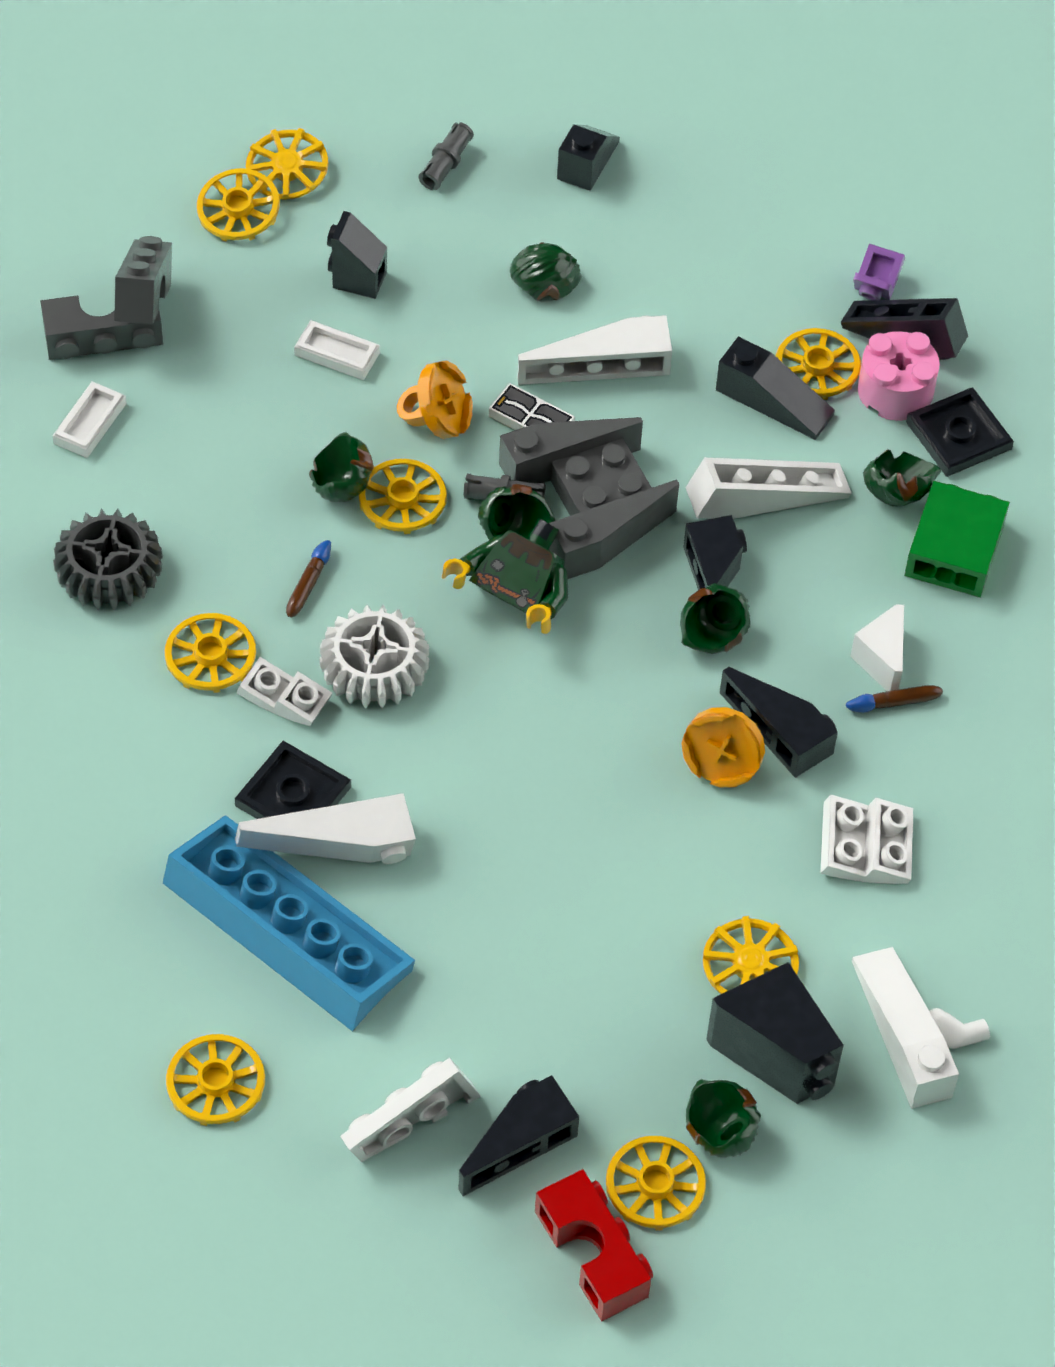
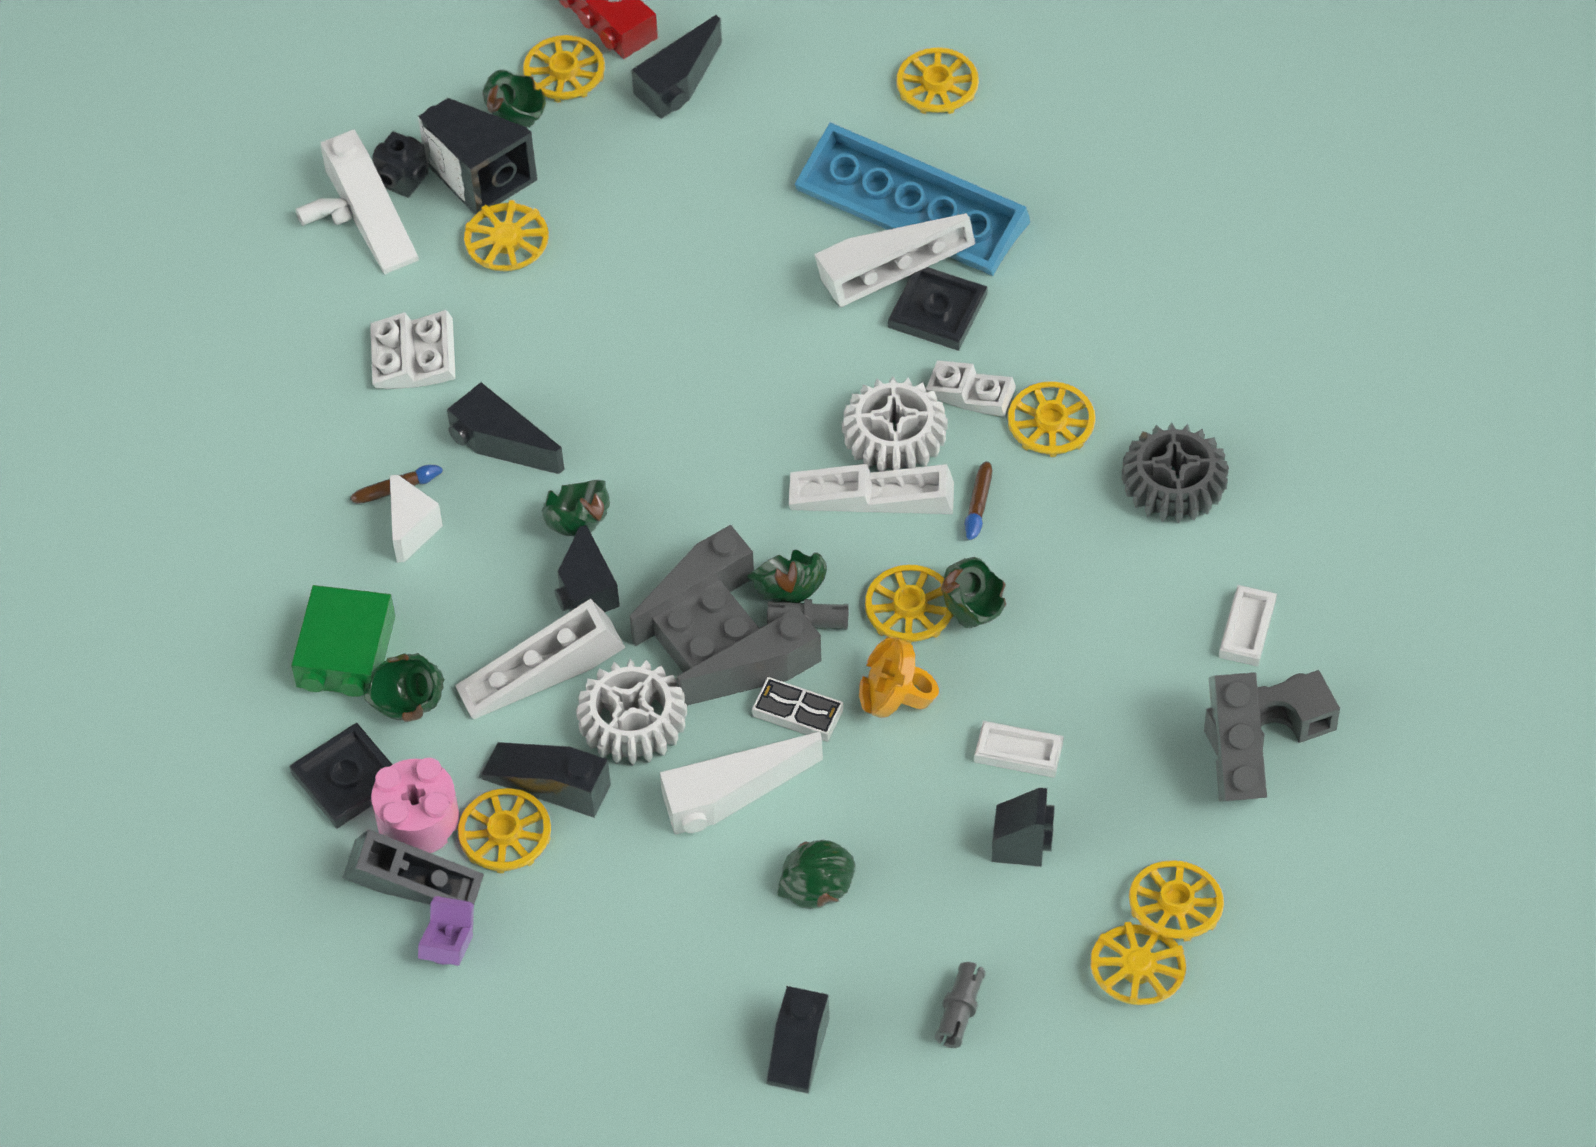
camera: 175 degrees right, 0 degrees up
(422, 1101) = (766, 62): white wing -> none
(431, 606) = (857, 490): none -> white slope
(518, 572) = (774, 512): torso -> none
(687, 418) = (634, 725): none -> white gear
(723, 747) = (549, 393): light orange tile -> none
(867, 1057) = (401, 163): none -> black brick

